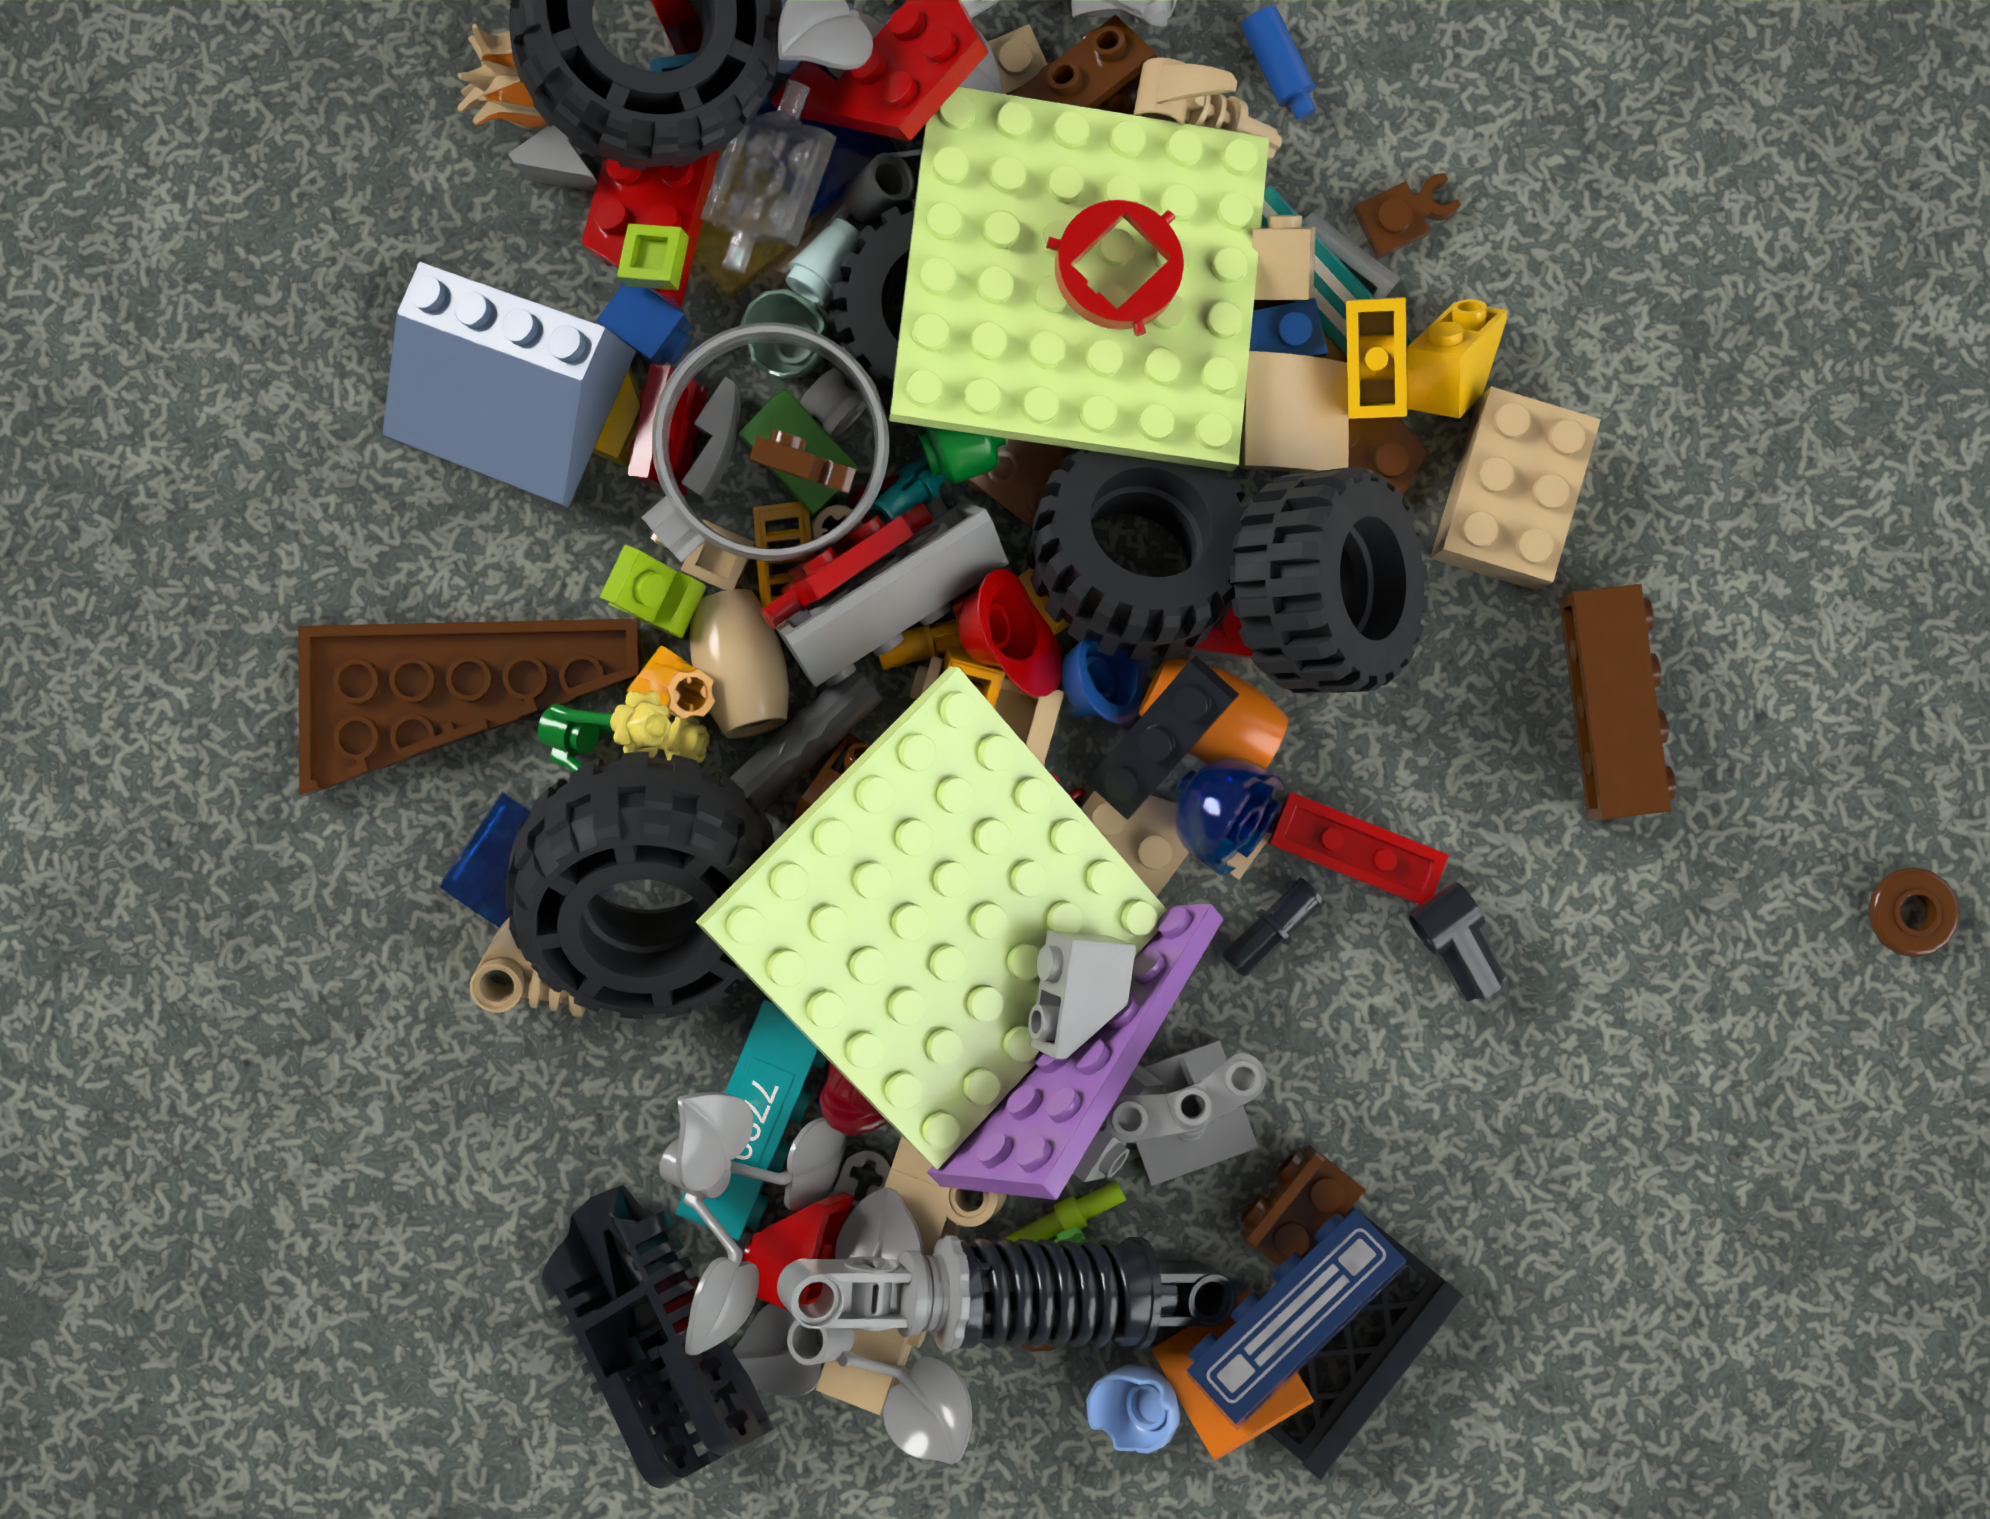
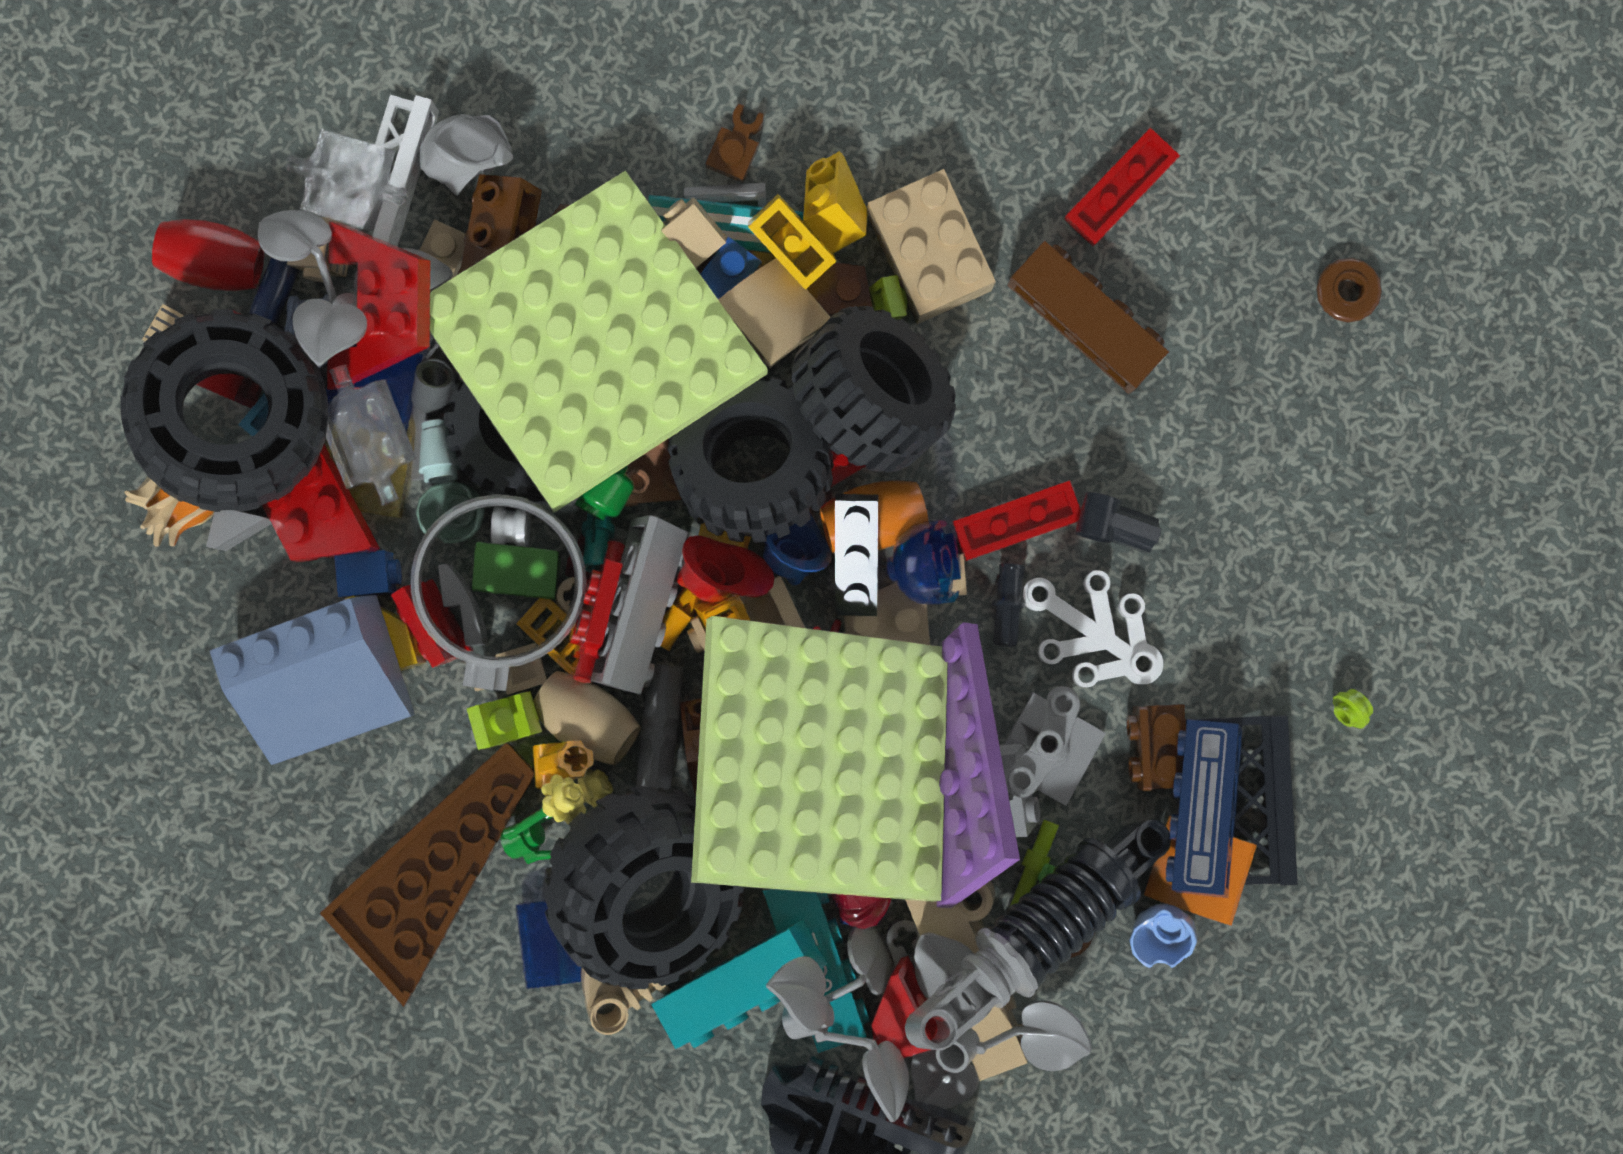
camera: 45 degrees left, 0 degrees up
(646, 1069) = (732, 987): none -> teal brick
(653, 256) = (340, 534): lime tile -> none
(787, 454) = (516, 581): reddish brown plate -> none
(1080, 989) = (932, 732): light grey slope -> none
(1085, 232) = (572, 309): red piece -> none
(1194, 97) = (568, 182): tan piece -> none
(1280, 61) = (593, 119): blue cylinder -> none
(1340, 1039) = (1098, 633): none -> white plant
(1429, 503) = (889, 296): none -> lime plate
(1537, 1348) = (1352, 708): none -> lime plate
(1768, 600) = (1121, 187): none -> red plate

